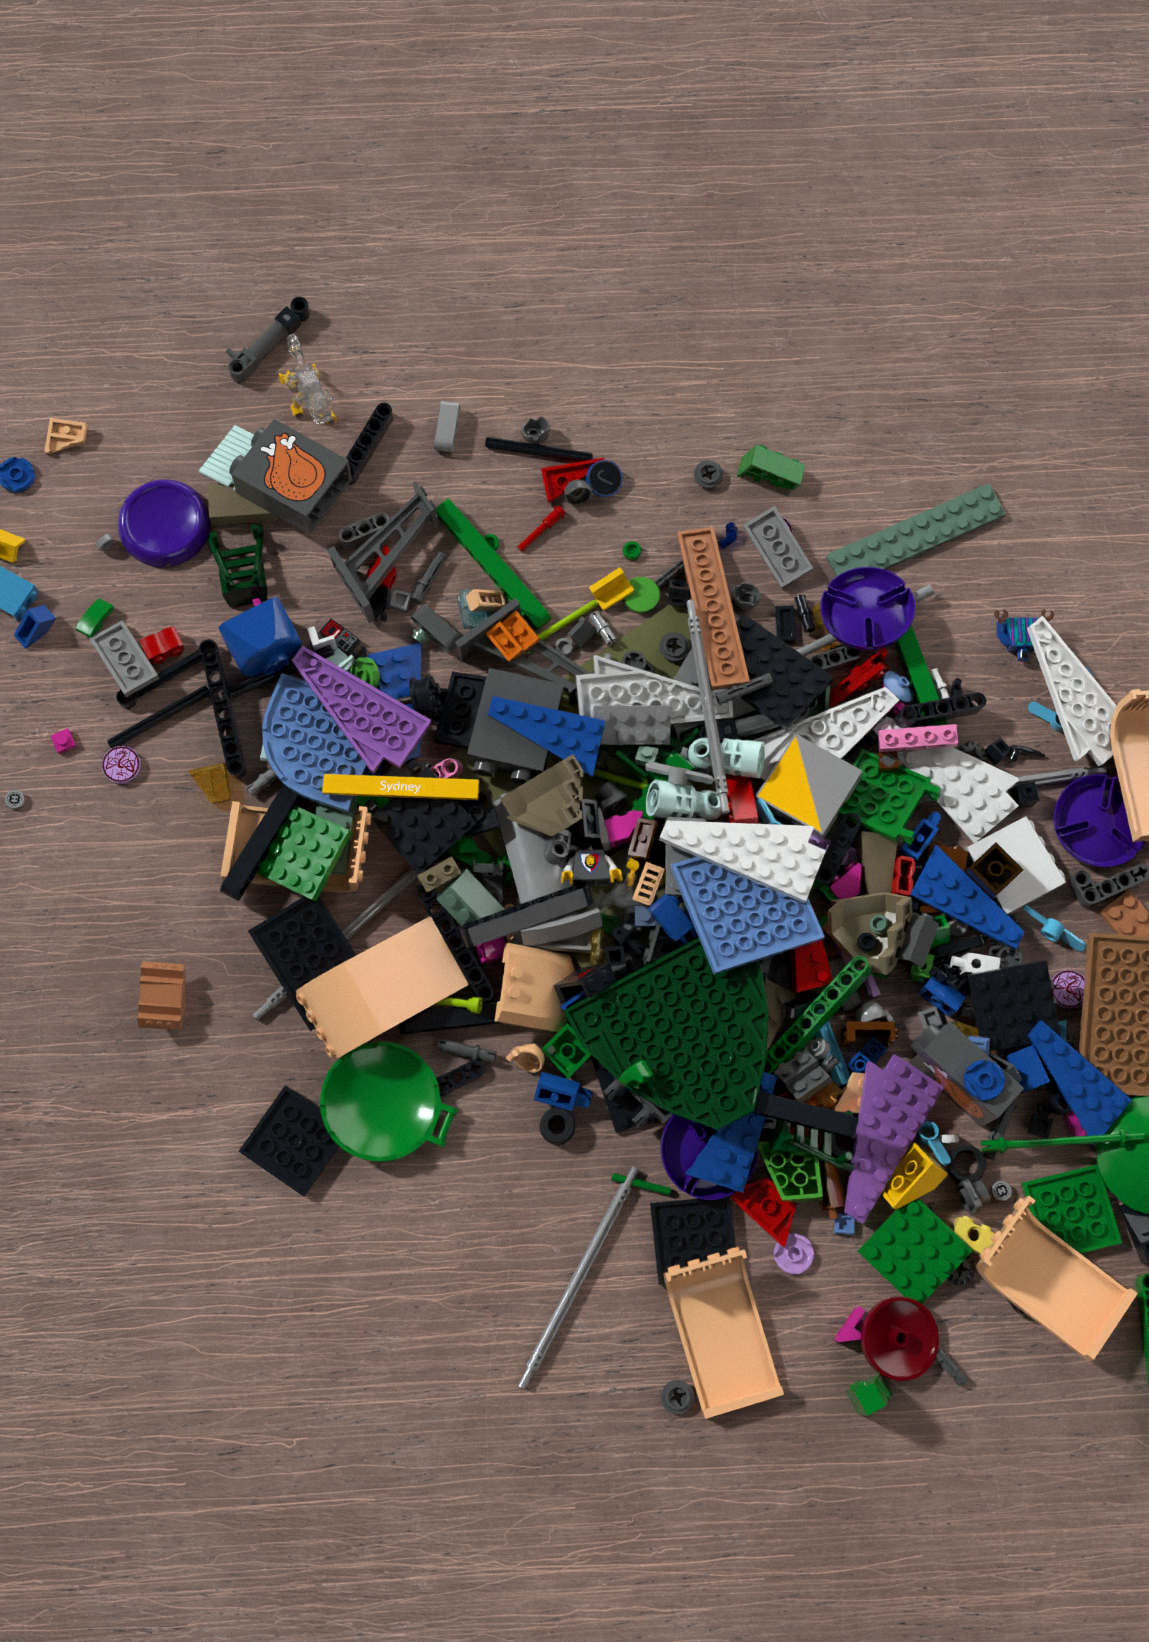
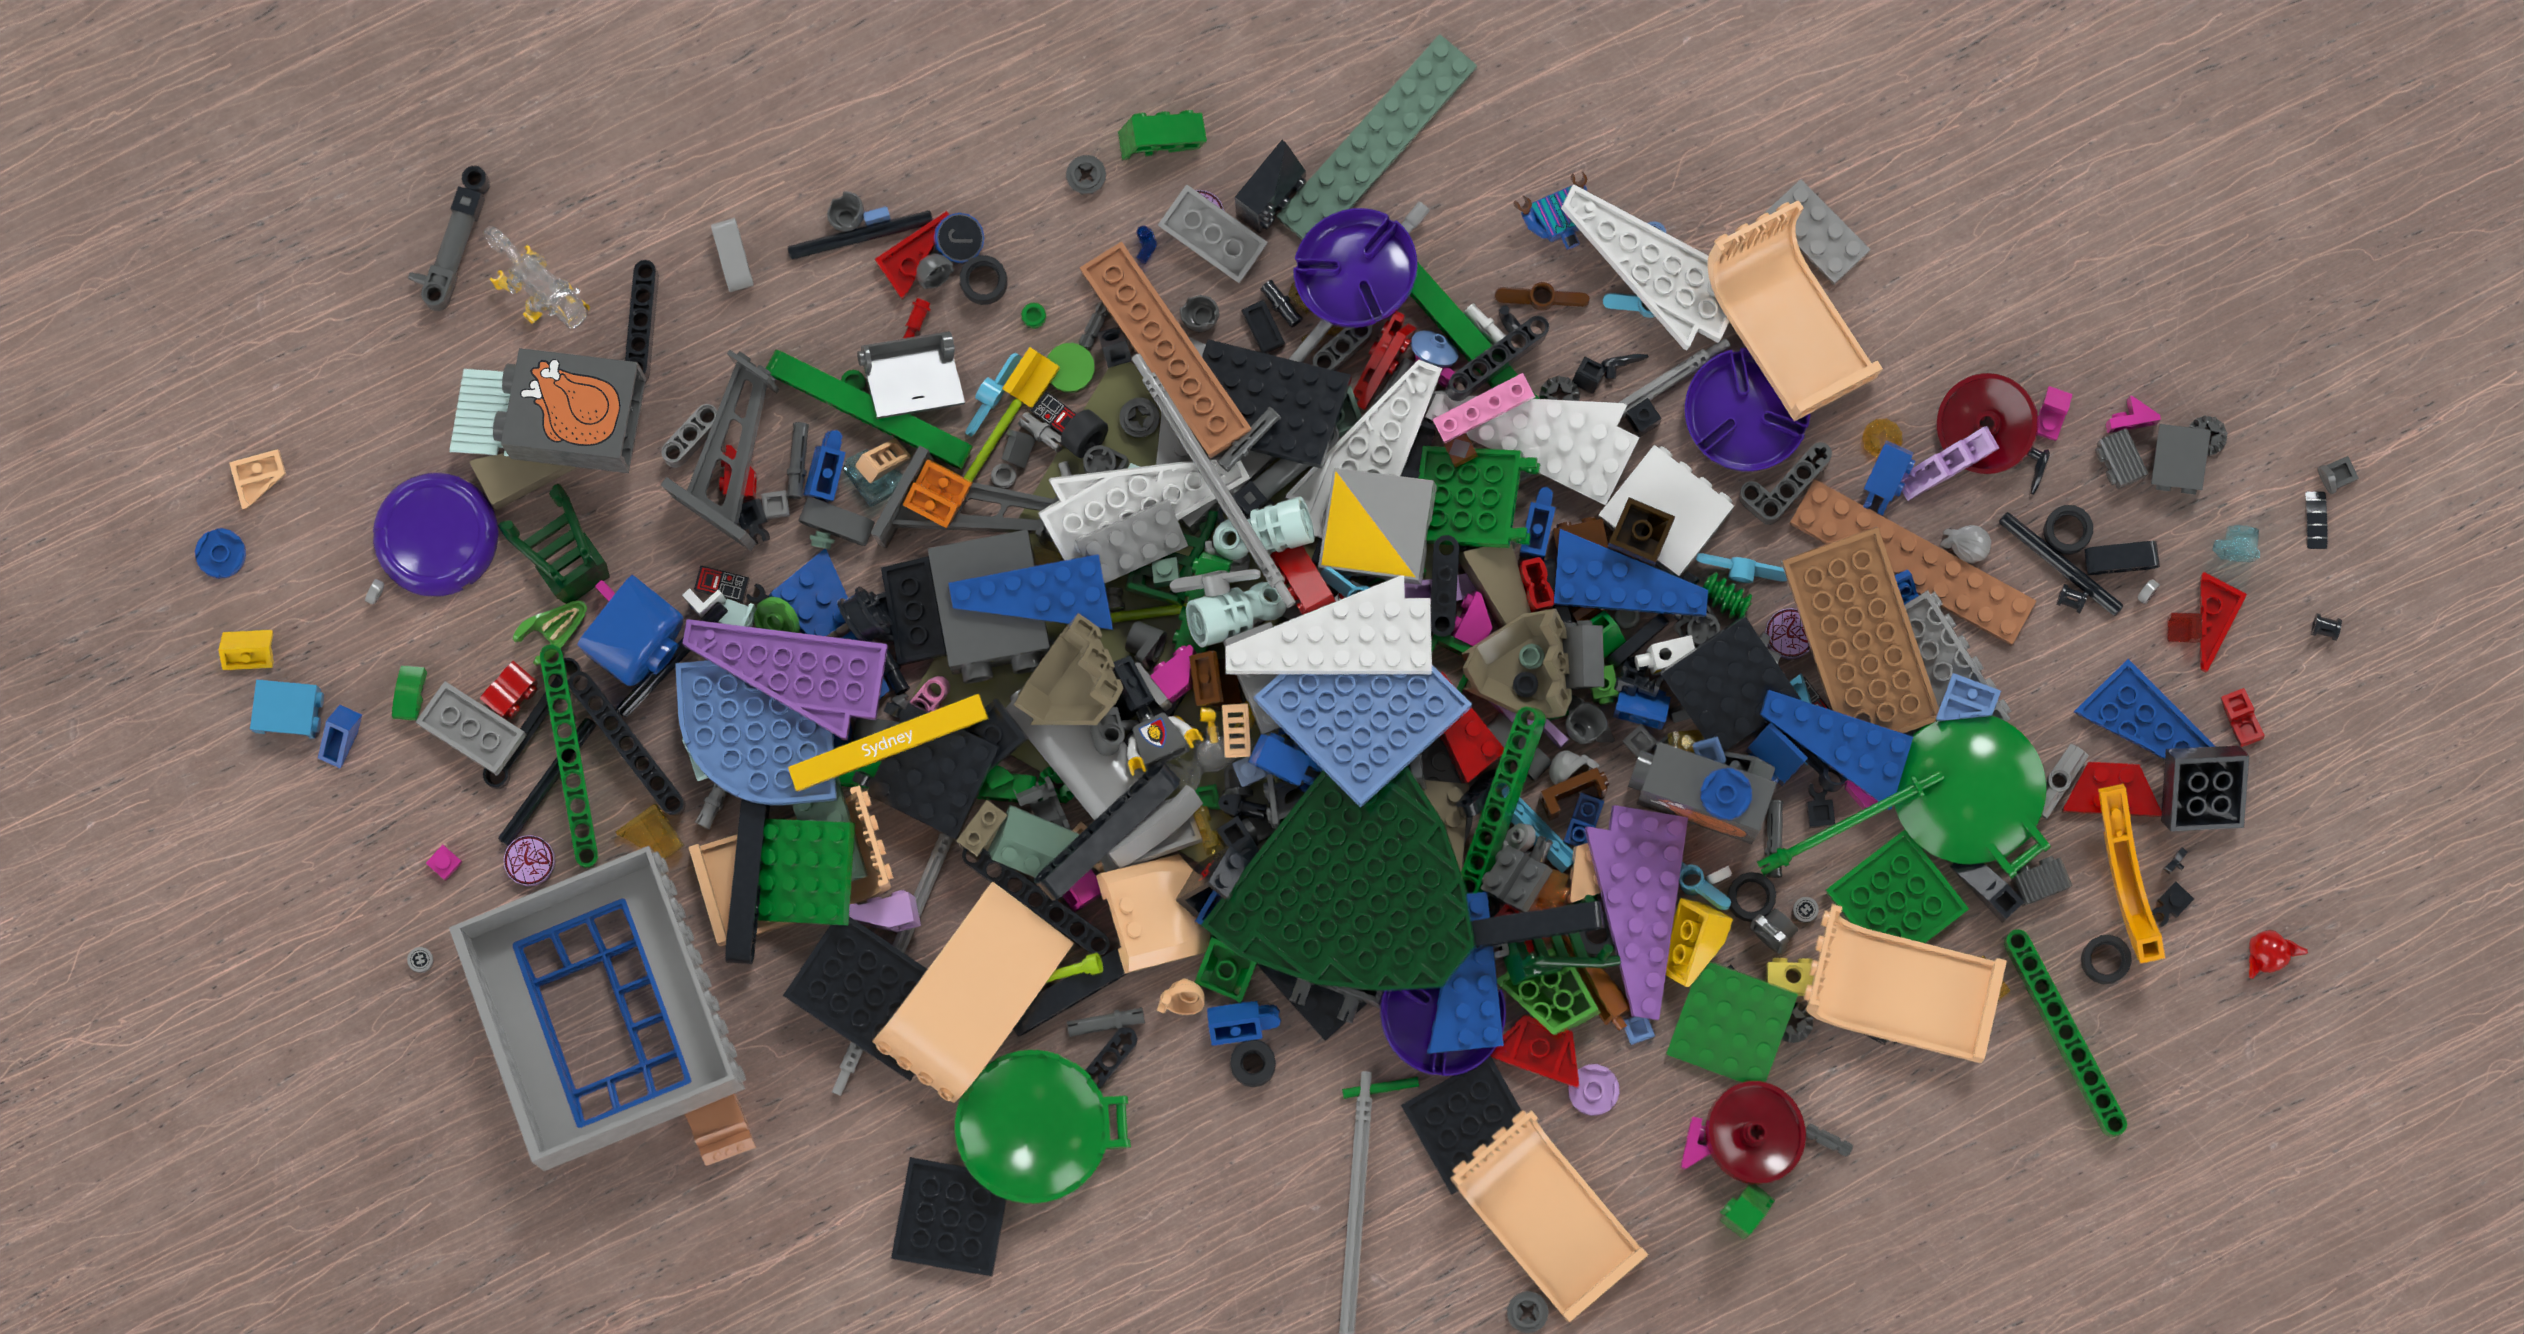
camera: 15 degrees left, 5 degrees up
(57, 875) = (525, 1036): none -> light grey panel
(180, 695) = (563, 744): none -> green beam
(213, 616) = (555, 625): none -> bright green animal
(349, 907) = (891, 913): none -> lavender slope
(428, 745) = (894, 675): none -> black pin
(445, 589) = (825, 468): none -> blue hinge
(531, 552) = (911, 370): none -> door
(555, 441) = (877, 216): none -> medium blue tile
(580, 588) = (991, 393): none -> medium azure piece
(613, 500) = (997, 293): none -> black tyre
(618, 622) = (1052, 412): none -> black tile
(631, 638) = (1084, 432): none -> black tyre
(636, 1074) = (1320, 964): green hair -> none
(830, 531) = (1270, 188): none -> black slope
(898, 989) = (1587, 723): none -> dark grey piece
(976, 680) = (1525, 296): none -> reddish brown piece
(1034, 944) = (1727, 597): none -> green piece

